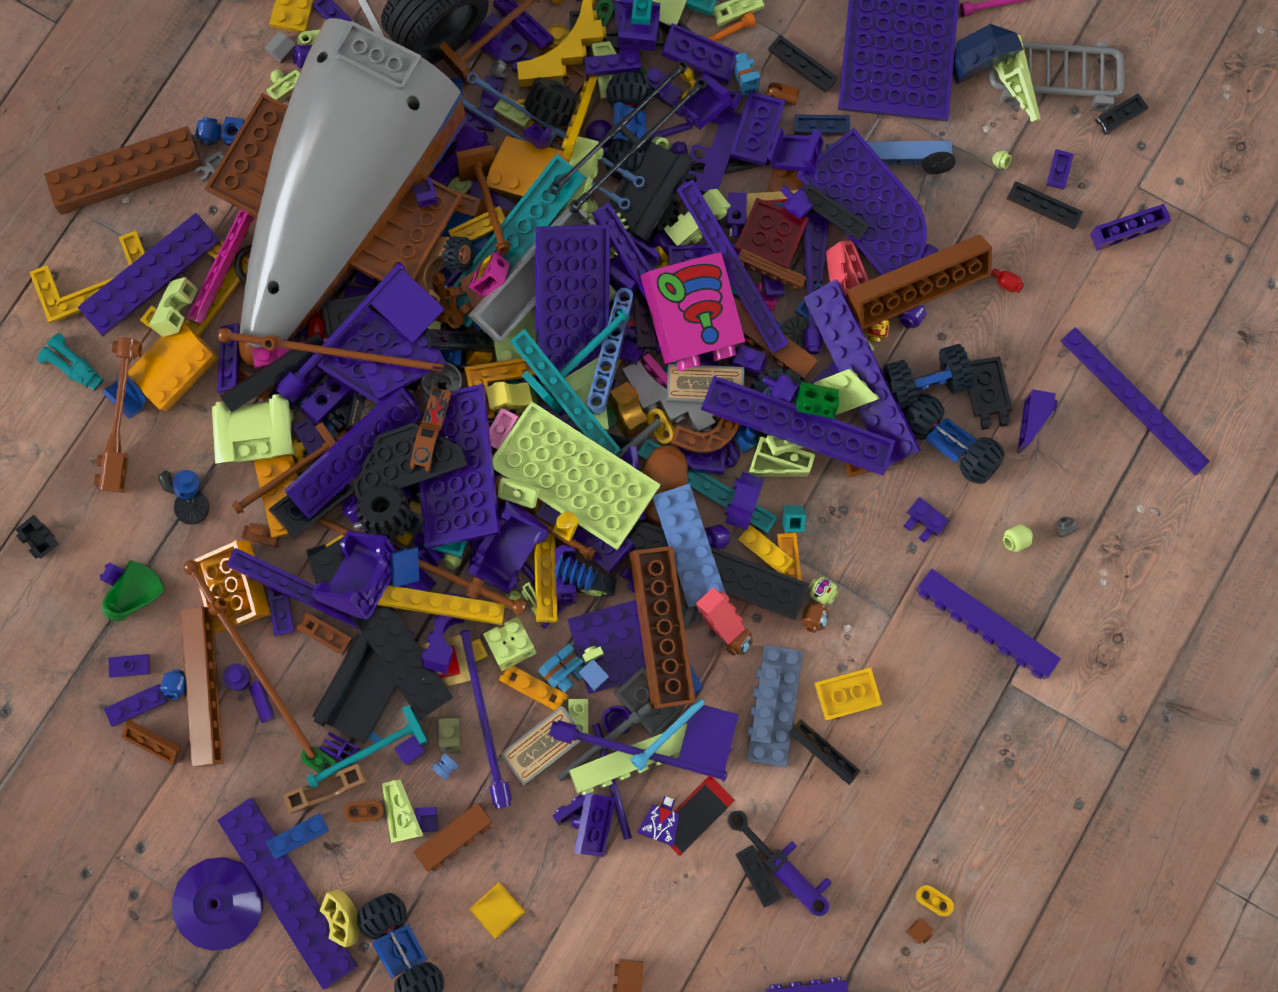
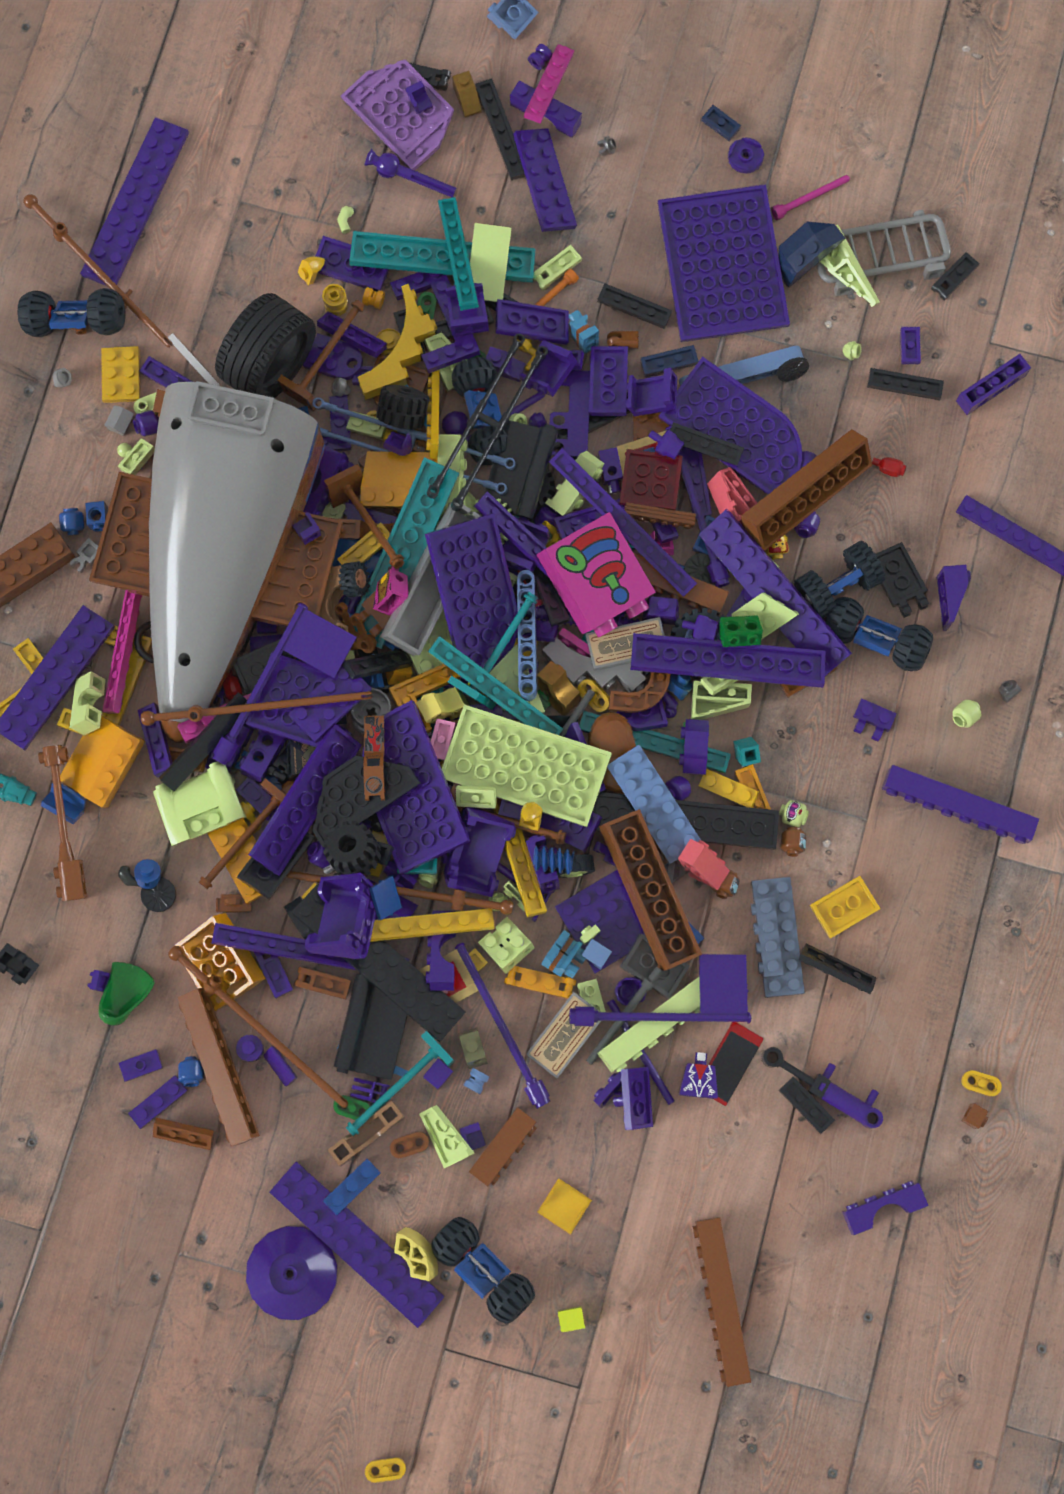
camera: 10 degrees left, 0 degrees up
(641, 759) = (665, 1024): medium azure piece -> none

